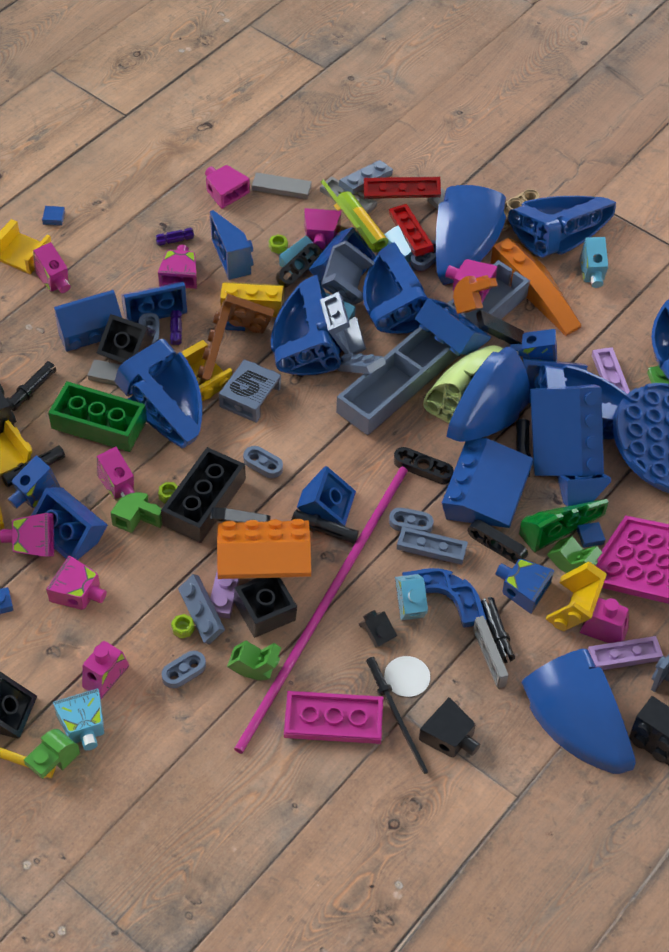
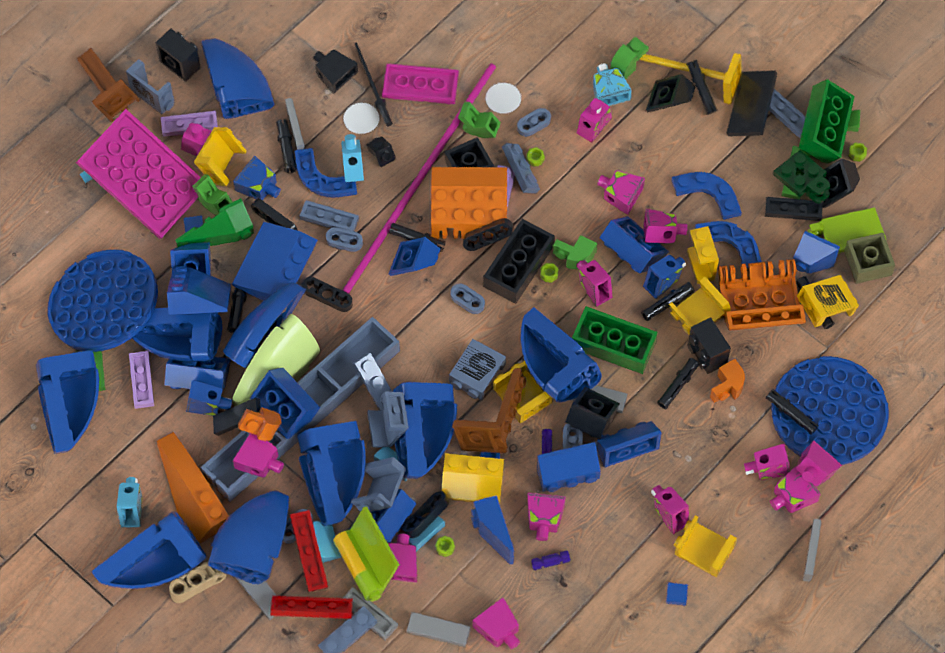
camera: 175 degrees left, 10 degrees up
(224, 709) = (503, 98): none -> white sticker

